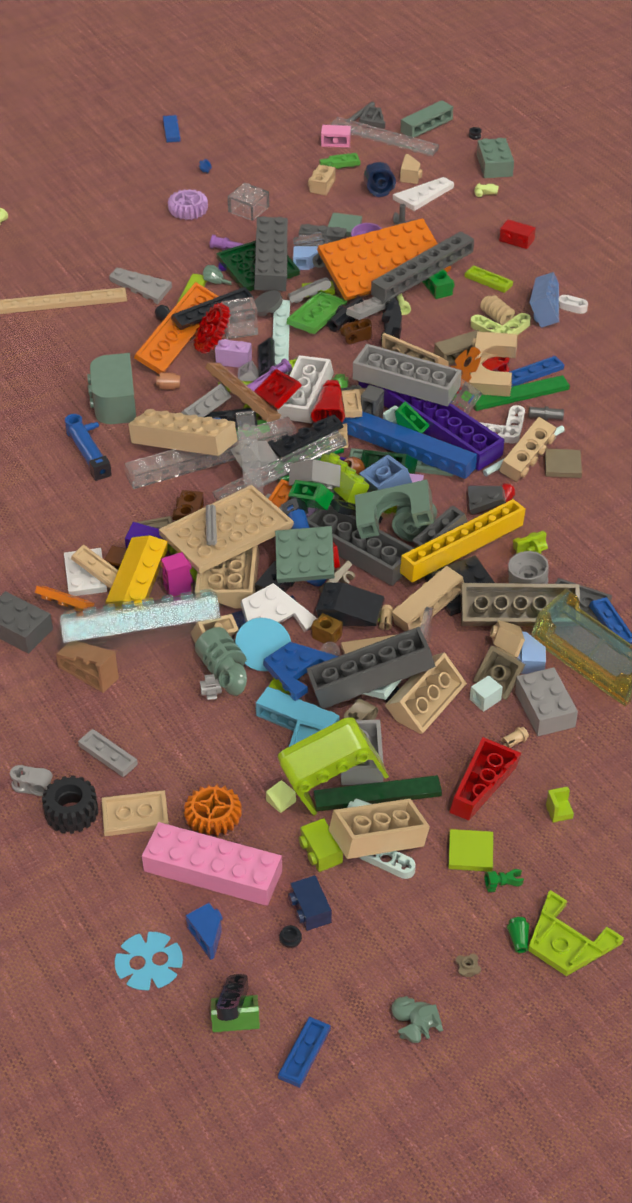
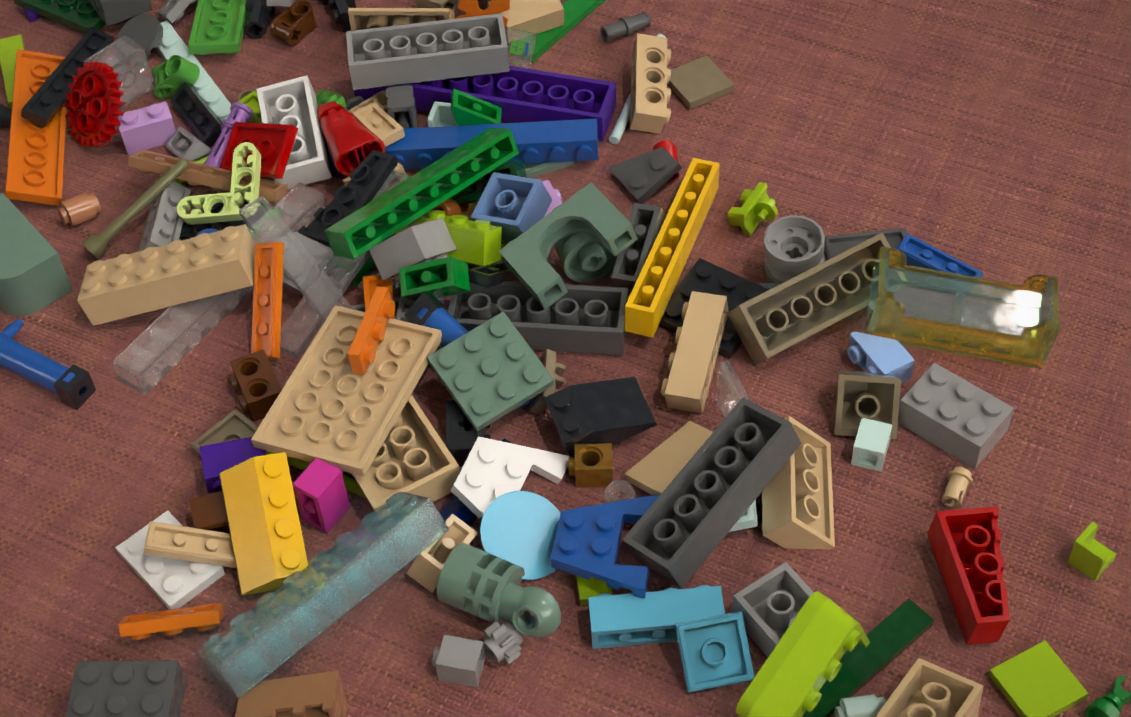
camera: 30 degrees left, 5 degrees up
(164, 402) = (97, 243): none -> olive piece
(184, 685) = (459, 660): none -> light grey brick
(211, 532) = (329, 395): light grey axle -> none
(214, 275) = (31, 29): sand green piece -> none
(222, 467) = (267, 298): none -> orange tile
(255, 503) = (371, 330): none -> orange plate
(262, 391) = (232, 199): none -> yellowish green beam
(267, 329) = (172, 74): none -> bright green piece
(342, 447) = (421, 193): none -> green brick
(362, 711) = (739, 568): dark tan piece -> none
(386, 617) = (656, 404): tan pin -> none
(507, 637) = (842, 351): tan slope -> none
(510, 432) = (602, 69): white beam -> none

